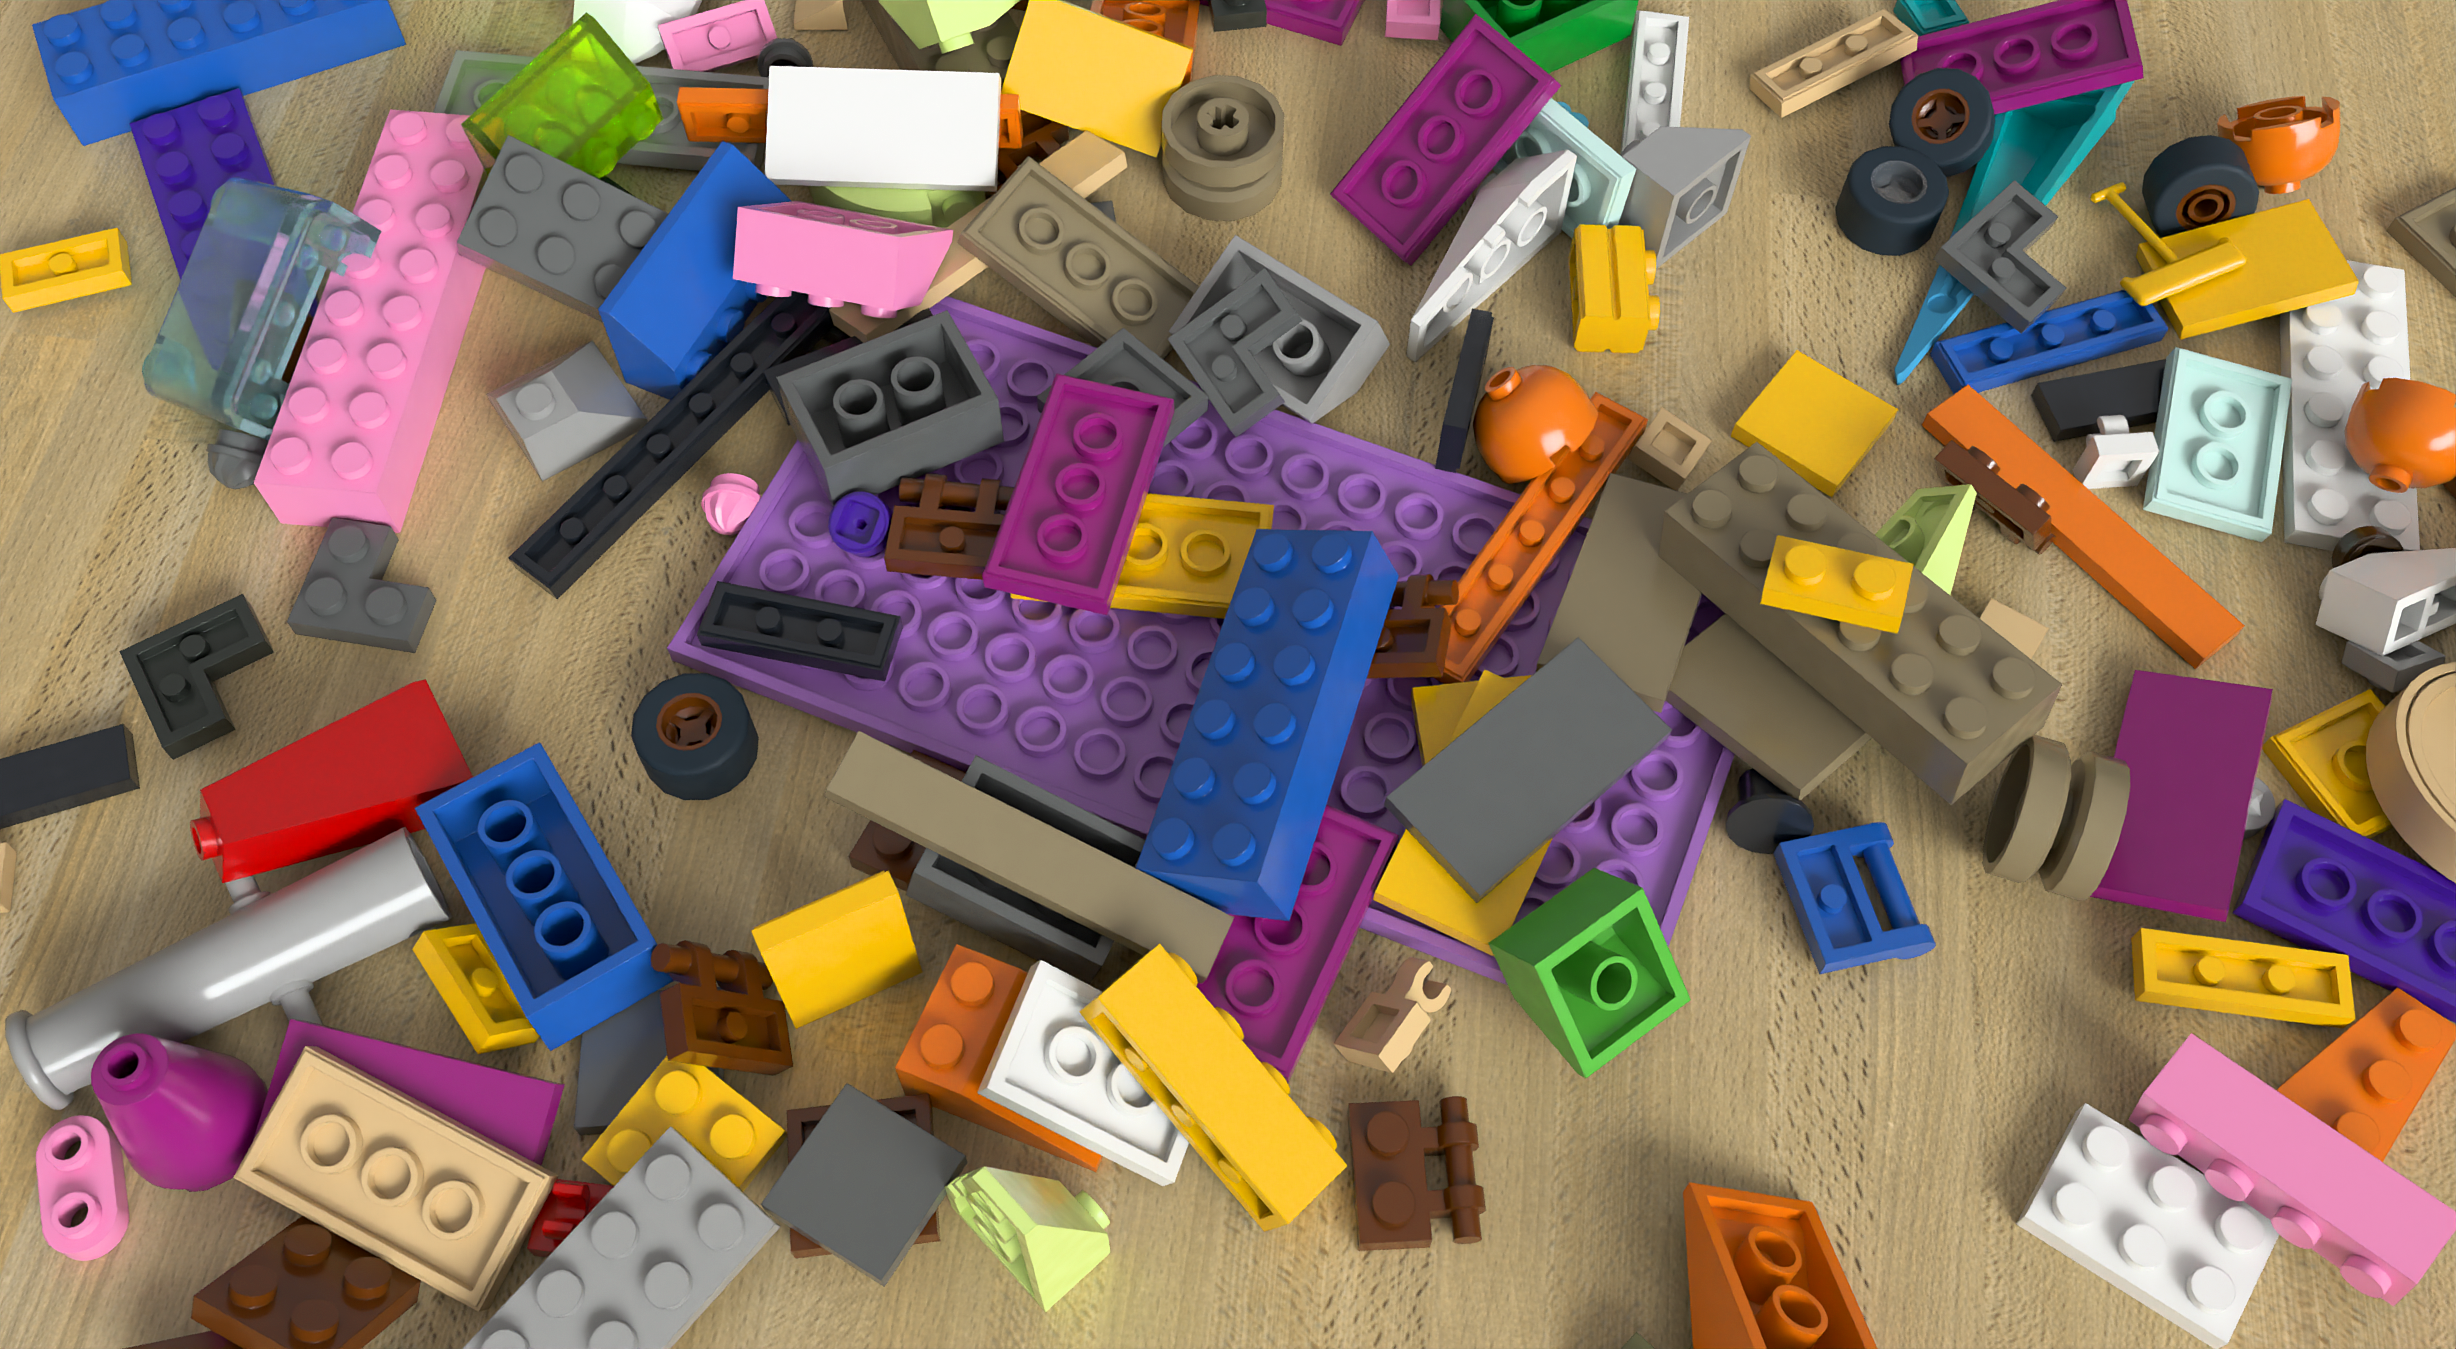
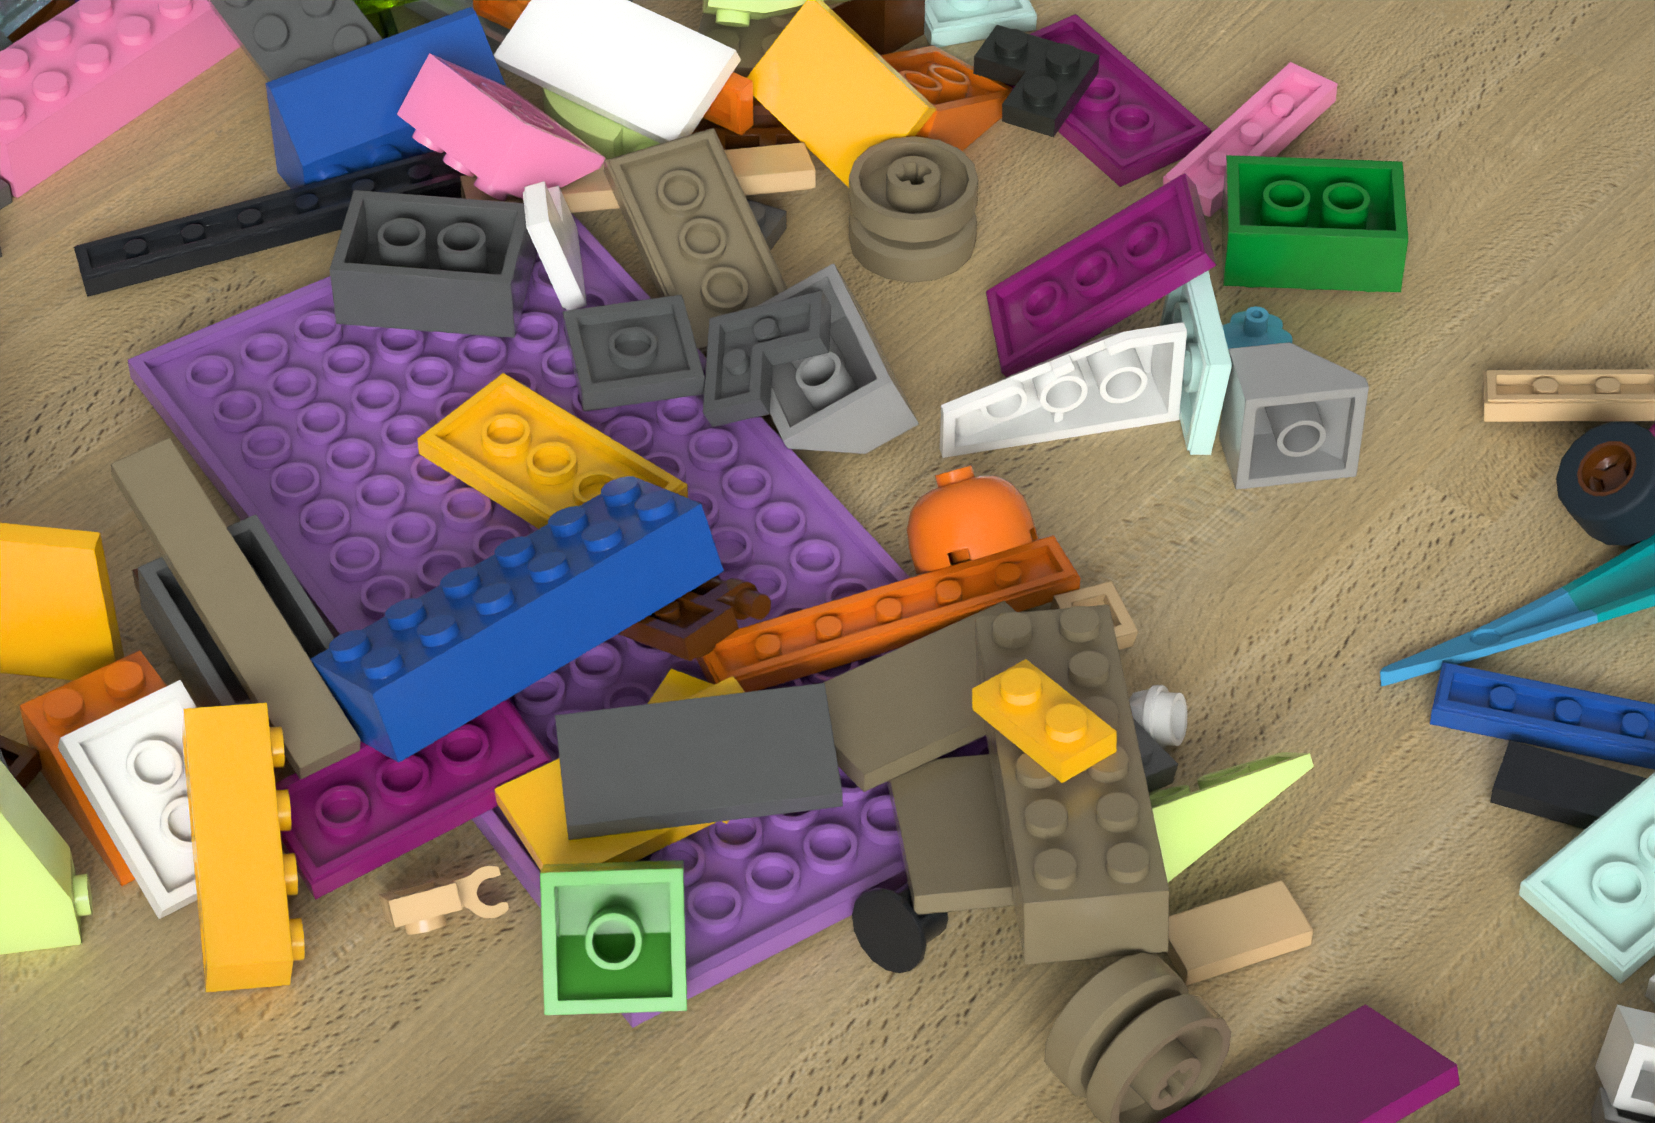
camera: 35 degrees right, 15 degrees down
(567, 410) = (206, 164): light grey slope -> none
(699, 713) = (89, 426): black wheel -> none
(730, 502) = (268, 281): bright pink plate -> none
(800, 631) = (233, 394): black tile -> none
(860, 524) = (344, 339): dark purple tile -> none
(942, 540) = (401, 381): reddish brown plate -> none
(982, 333) = (556, 242): none -> white tile
(1079, 494) = (526, 392): magenta tile -> none
(1391, 1180) = (341, 1004): reddish brown plate -> none
(1464, 391) = (896, 493): black tile -> none
(1611, 289) = (1163, 474): yellow brick -> none
(1654, 74) = (1399, 330): white tile -> none
(1815, 422) = (1260, 671): yellow tile -> none
(1836, 906) = (896, 1019): blue plate -> none
(1891, 200) = (1513, 529): black wheel -> none
(1992, 258) = (1553, 605): dark grey plate -> none
(2017, 510) = (1351, 796): reddish brown plate -> none
(2092, 531) = (1440, 878): orange tile -> none
(2115, 455) = (1519, 829): white tile -> none

